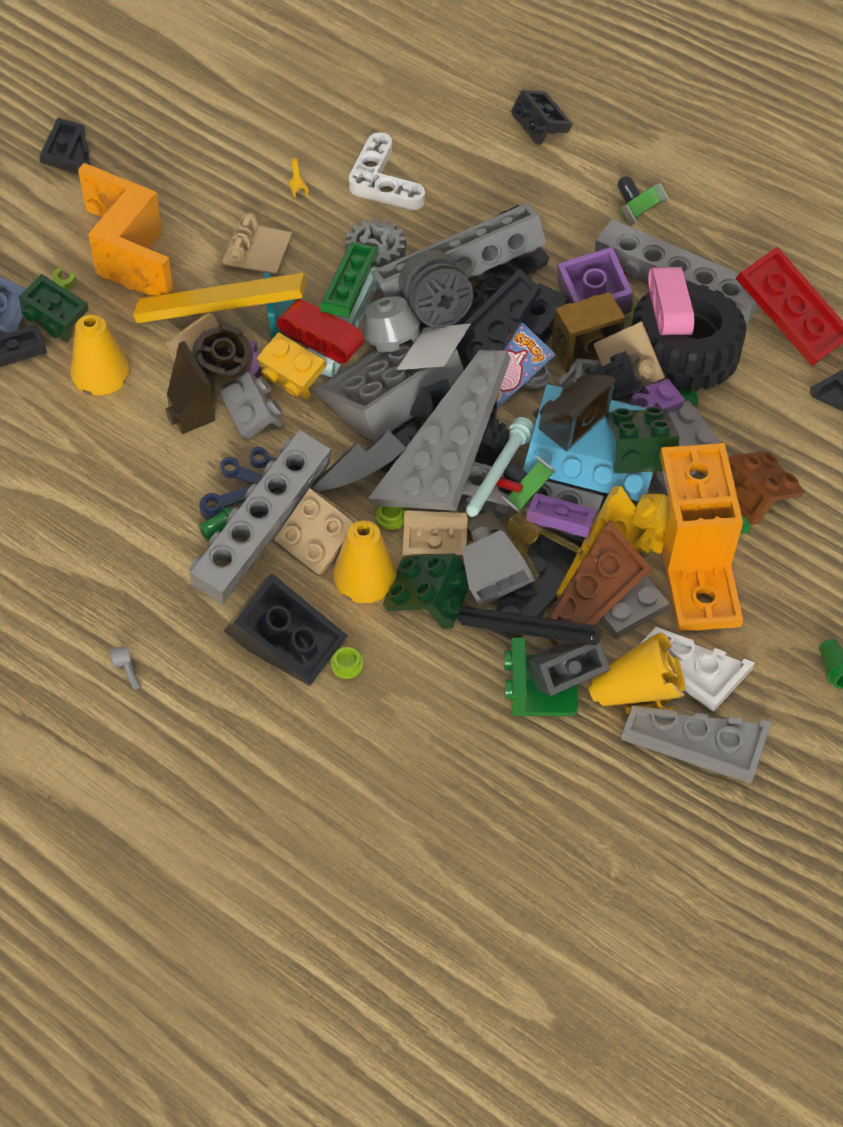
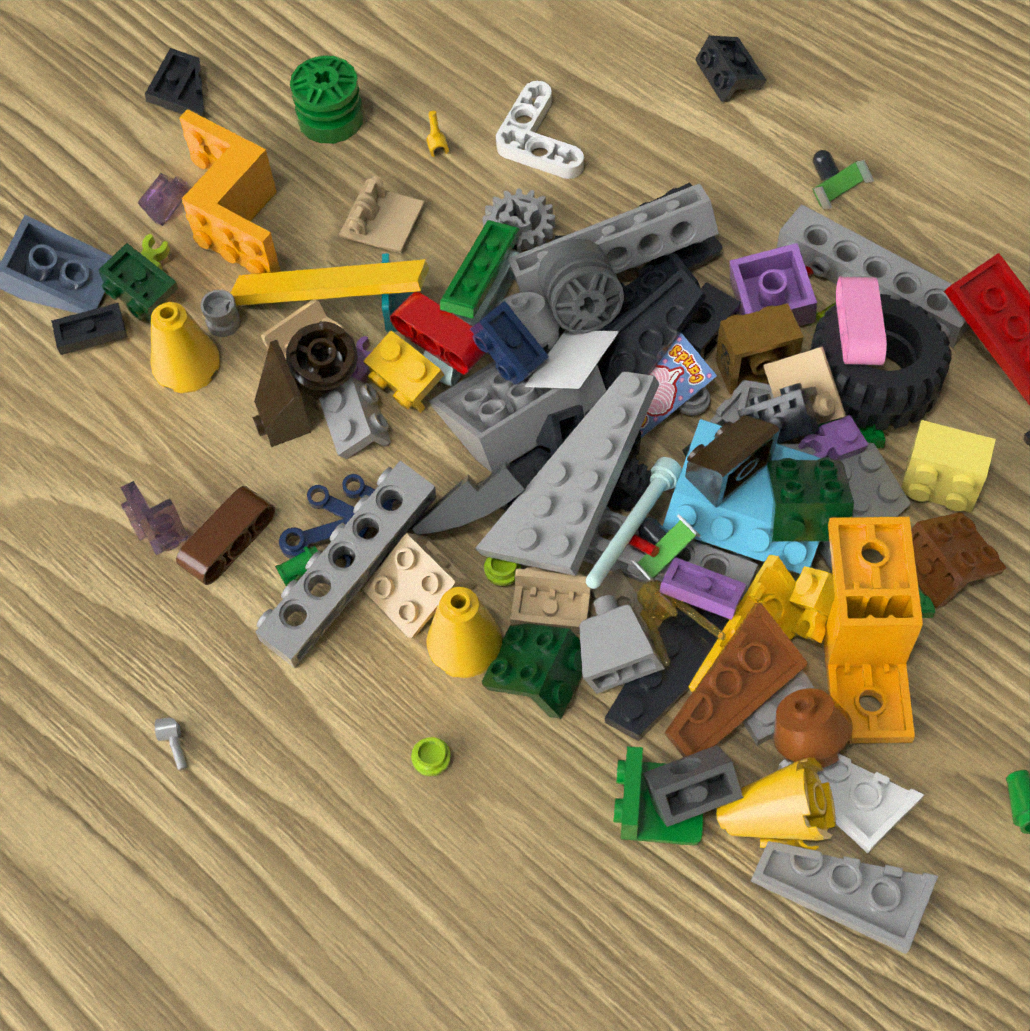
camera: 10 degrees right, 5 degrees up
(66, 239) = (163, 197): none -> bracket
(90, 495) = (157, 524): none -> bracket
(127, 328) = (220, 313): none -> light grey wheel
(152, 503) = (225, 535): none -> reddish brown beam
(200, 153) = (327, 99): none -> green wheel
(285, 631) = (362, 711): black slope -> none
(380, 335) = (508, 343): none -> dark blue bracket
(530, 625) = (652, 732): black axle -> none
(659, 610) = (811, 726): none -> dark orange cone
(750, 413) = (947, 466): none -> light yellow brick

